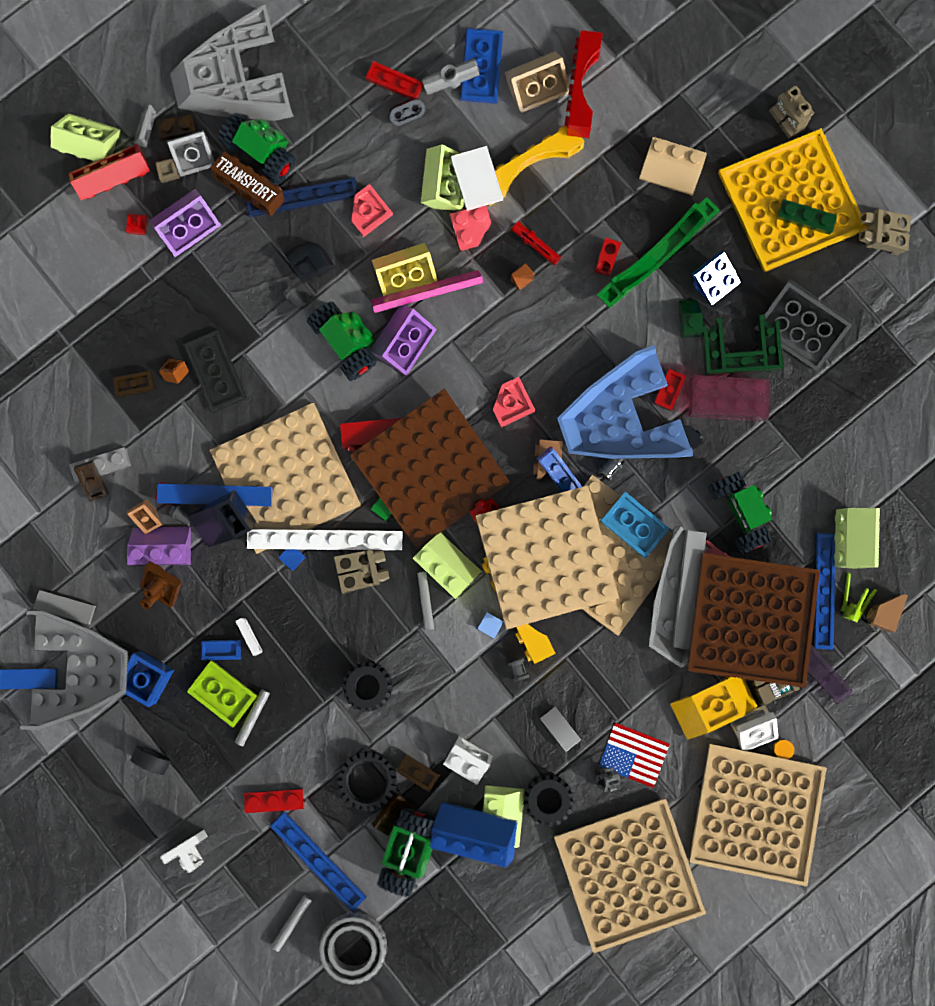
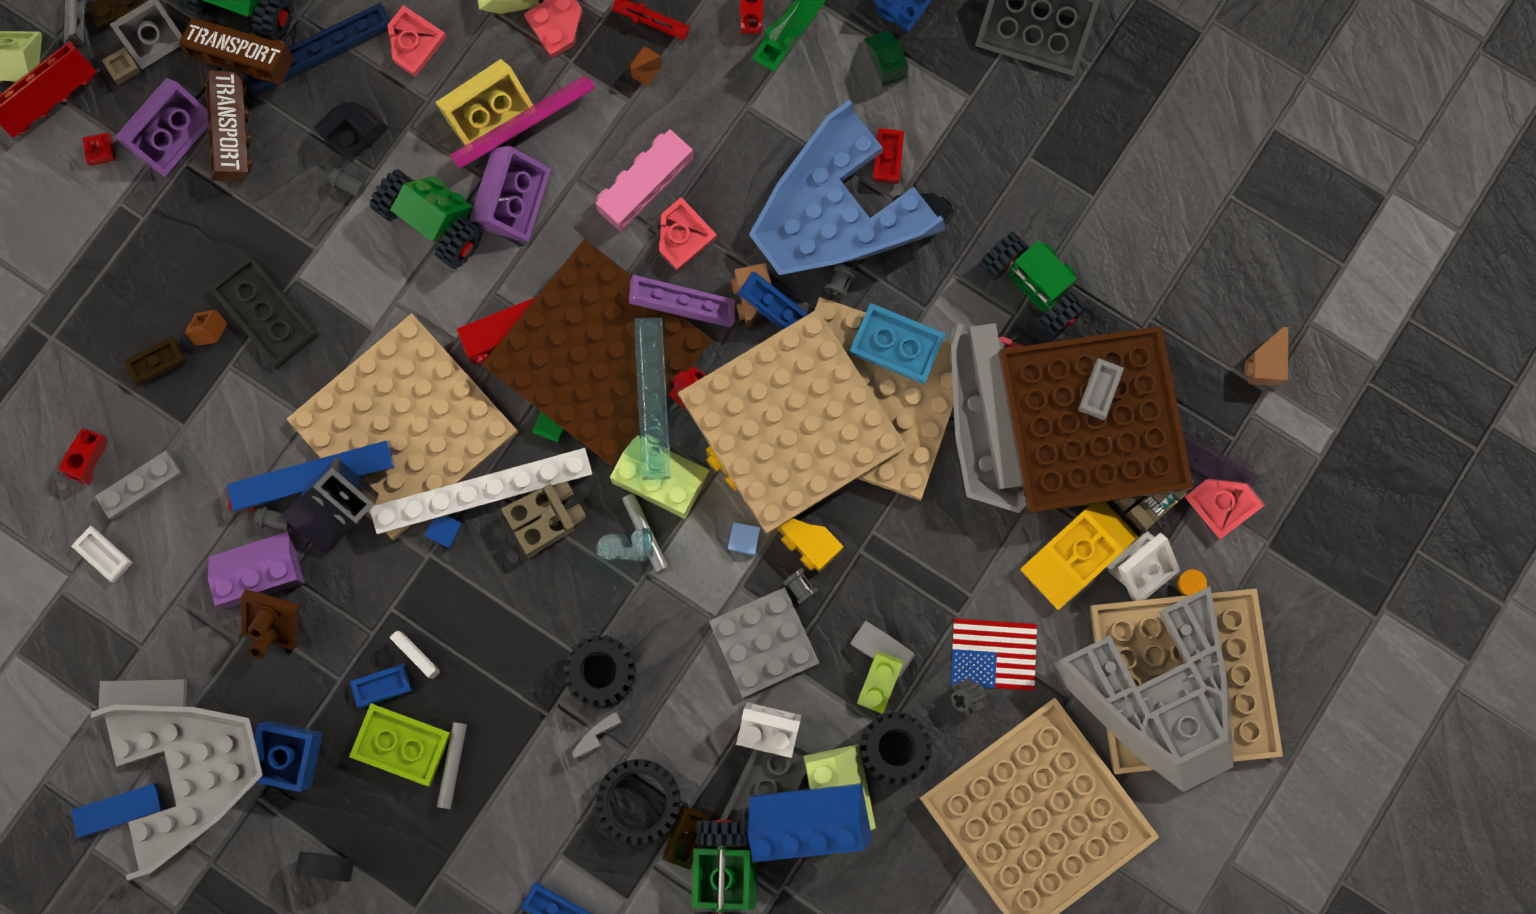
camera: 20 degrees left, 5 degrees down
(63, 504) = (102, 554): none -> white tile
(69, 434) = (83, 456): none -> red leg
(91, 480) = (132, 508): dark brown plate -> none
(145, 516) = (221, 532): medium nougat slope -> none
(226, 235) = (227, 126): none -> reddish brown brick
(274, 800) = (516, 871): red plate -> none
(348, 731) = (590, 741): none -> light grey slope
(405, 605) = (618, 546): none -> clear light blue leg
(417, 772) = (704, 769): dark brown plate -> none
(457, 513) = (652, 399): none -> clear light blue plate
(482, 699) = (764, 642): none -> light grey plate
(497, 357) = (644, 180): none -> bright pink brick
(497, 451) = (682, 301): none -> medium lavender plate
(551, 751) = (880, 682): none -> lime plate
(729, 398) = (970, 143): clear pink brick -> none
(740, 840) = (1175, 720): none -> light grey piece
(764, 601) = (1101, 389): none -> light grey tile
(765, 360) = (1002, 80): dark green wedge -> none
(823, 703) = (1224, 504): none -> coral plate
(824, 612) = (1186, 383): blue tile -> none
(854, 612) = (1225, 371): lime plant -> none
(856, 538) = (1196, 272): yellowish green slope -> none

